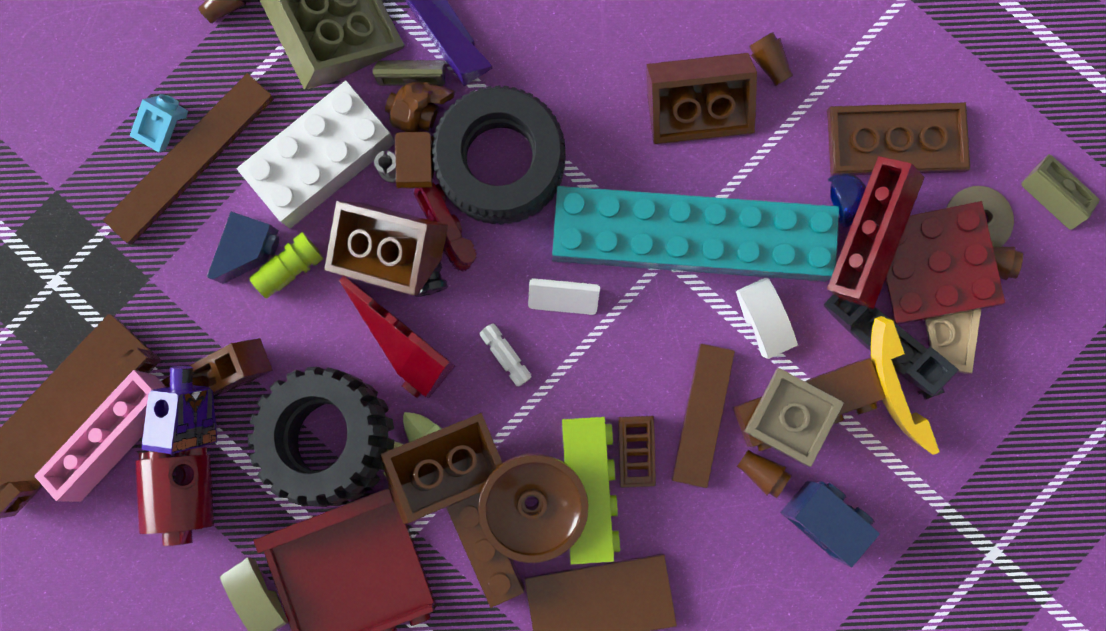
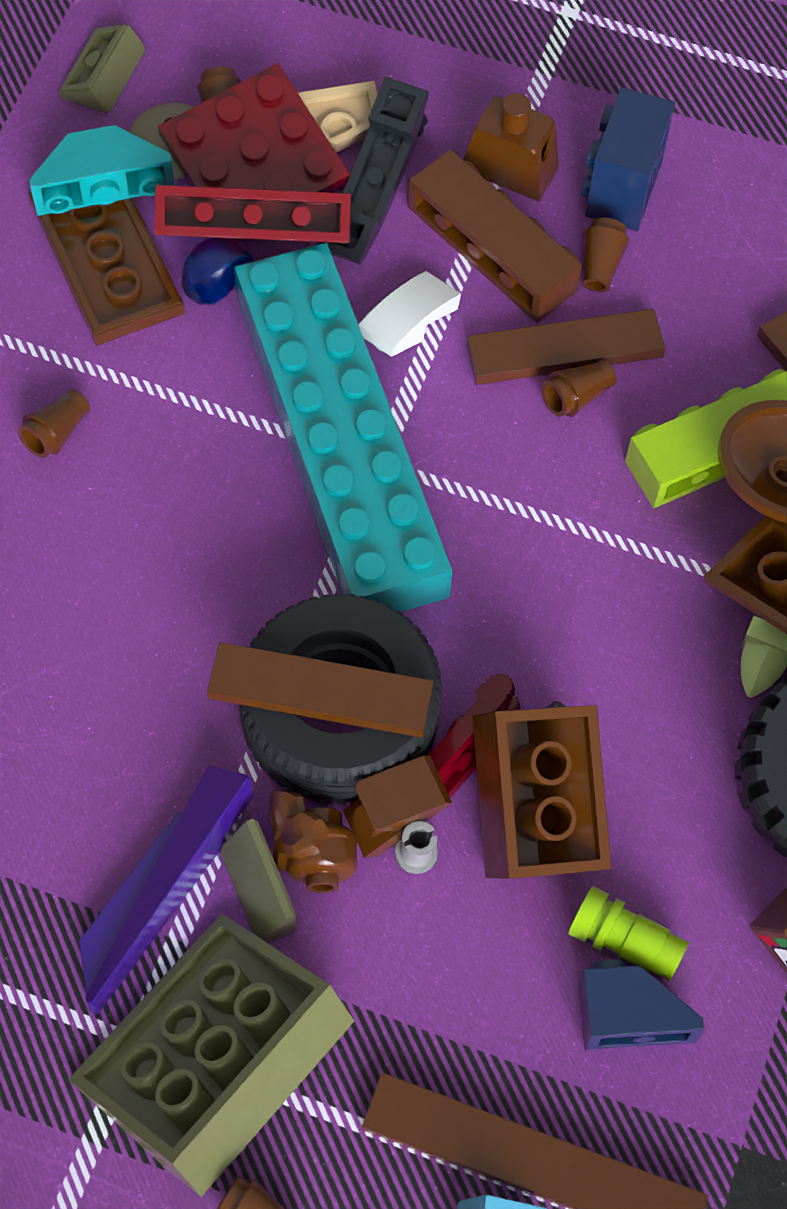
camera: 115 degrees left, 20 degrees down
(316, 155) = (446, 956): white brick -> none
(408, 353) = (670, 711): dark red wedge -> none
(492, 131) = (320, 689): none -> reddish brown tile
(505, 354) = (605, 601): white axle -> none
(563, 296) = (491, 558): white slope -> none
(649, 437) = (623, 425): reddish brown slope -> none
(665, 406) = (576, 387): none -> reddish brown cone
(702, 98) = (143, 485): reddish brown slope -> none
(794, 417) = (526, 226): dark tan plate -> none
(874, 446) = (515, 146): none -> reddish brown torso
(884, 347) = (392, 163): yellow slope -> none
(960, 147) = (99, 169): none -> teal slope

